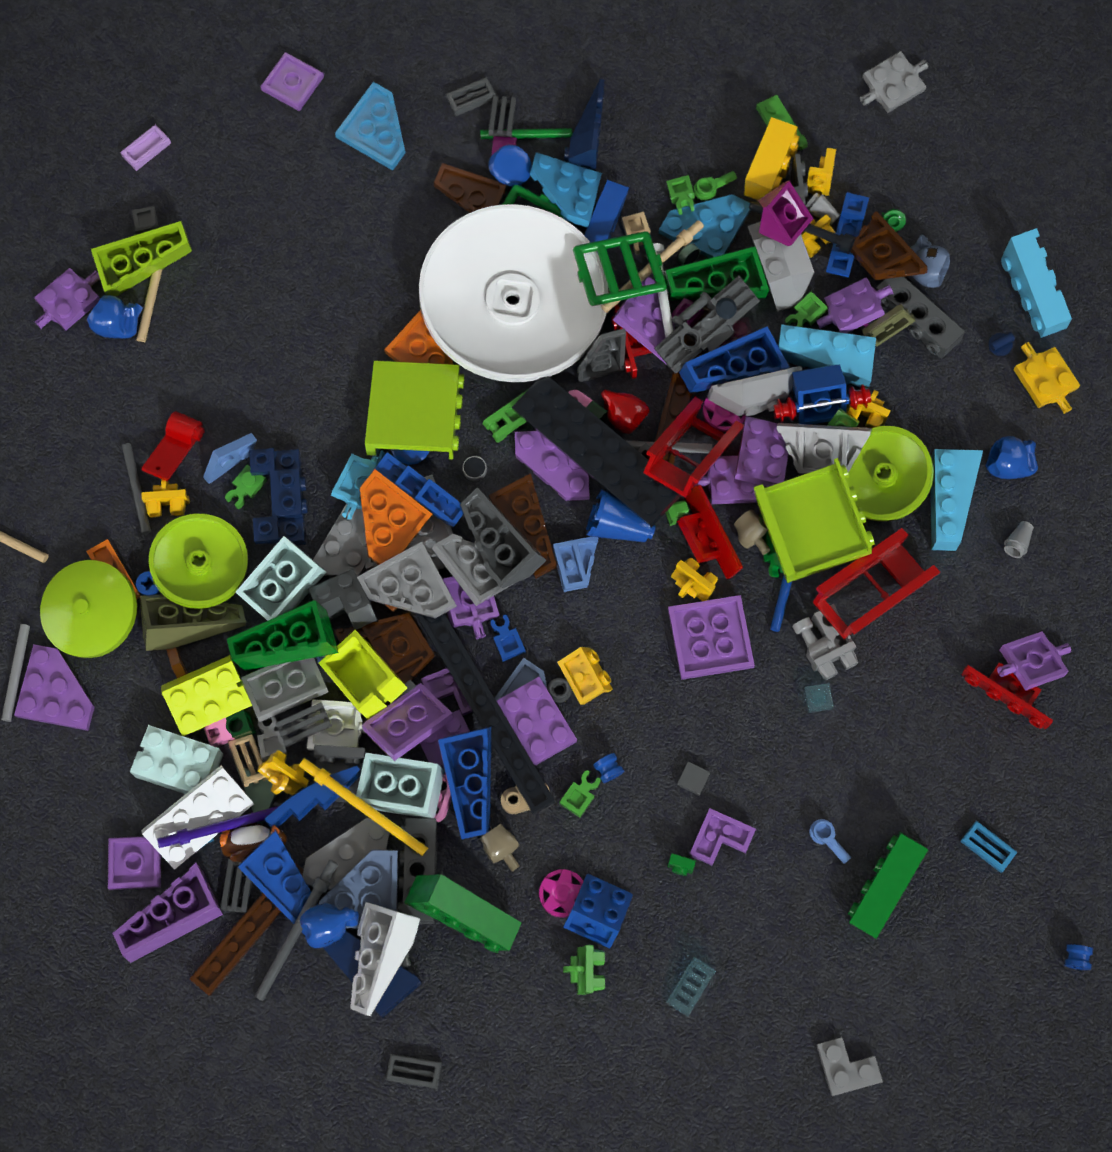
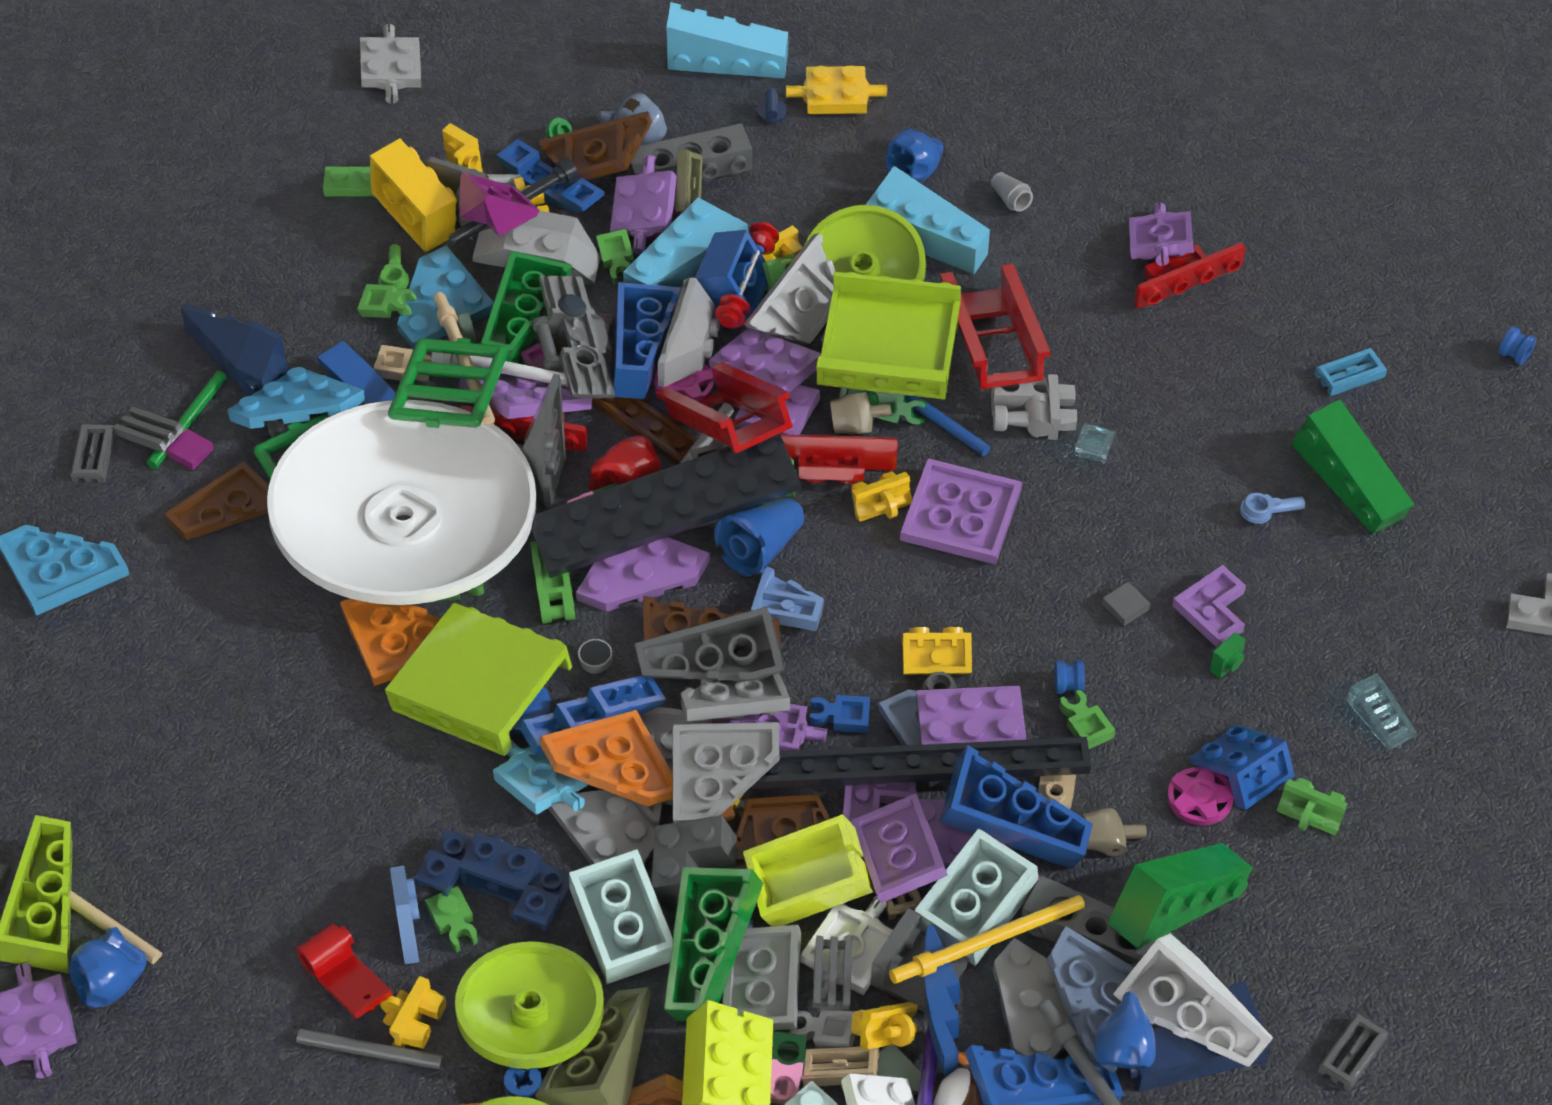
camera: 65 degrees left, 20 degrees down
(510, 165) = (220, 447): blue piece -> none

